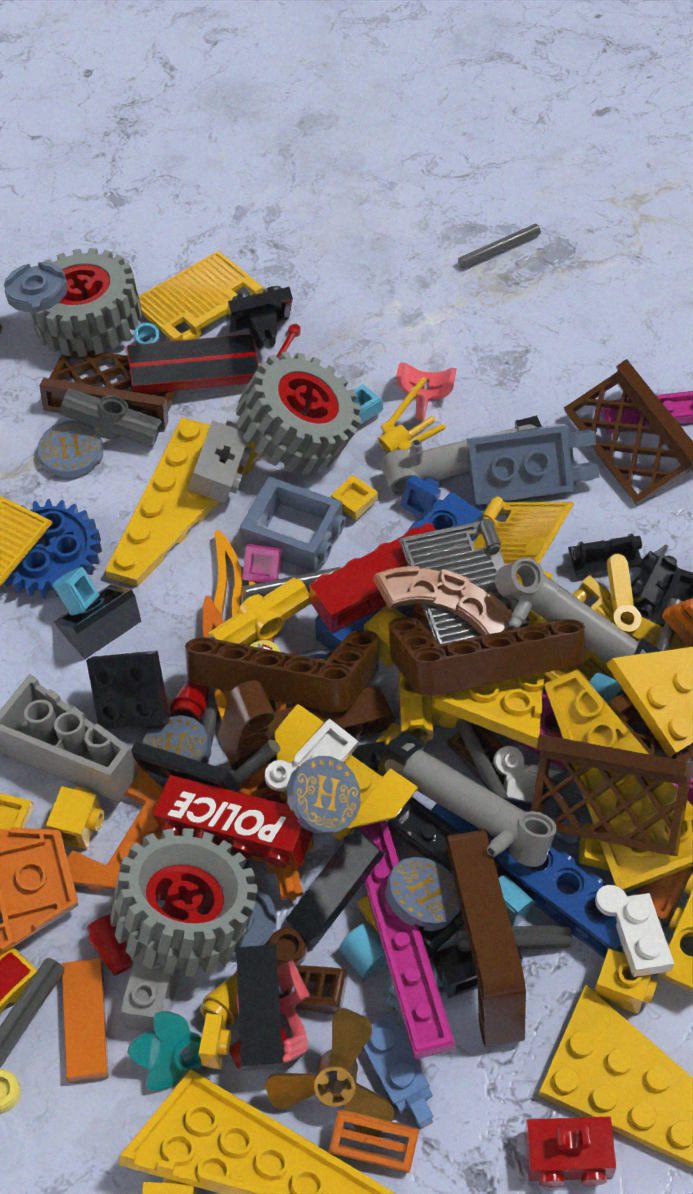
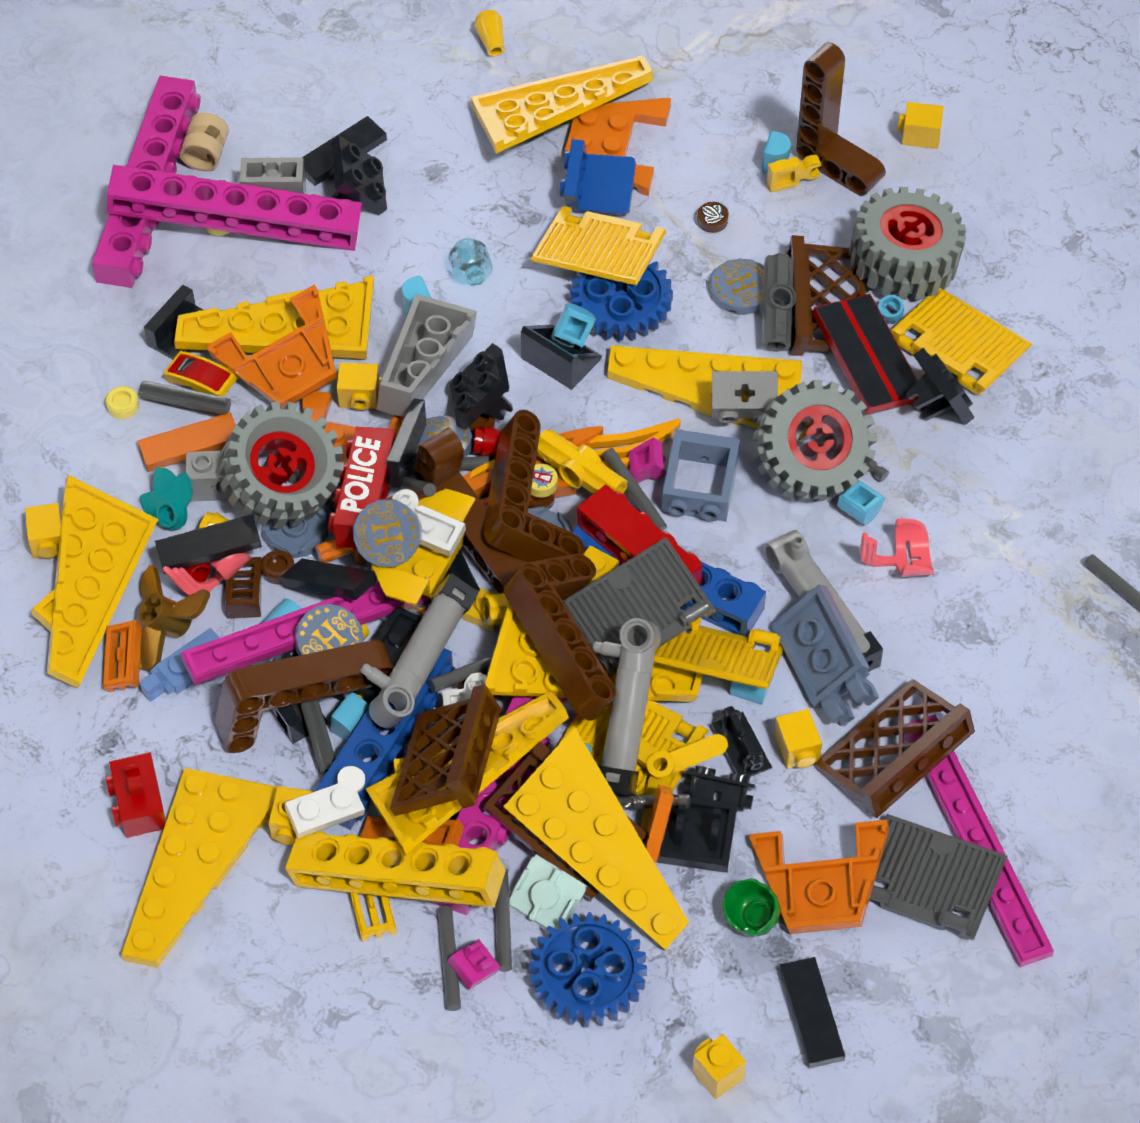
camera: 75 degrees right, 0 degrees up
(35, 287) = (893, 193): sand blue tile -> none
(214, 1041) = (173, 519): yellow plate -> none
(294, 331) = (947, 431): red hinge -> none
(355, 496) = (748, 520): yellow plate -> none
(398, 437) = (824, 539): yellow plant -> none
(420, 495) = (765, 575): blue tile -> none
(444, 590) = (622, 585): nougat tile -> none
(612, 506) = (798, 739): none -> yellow brick

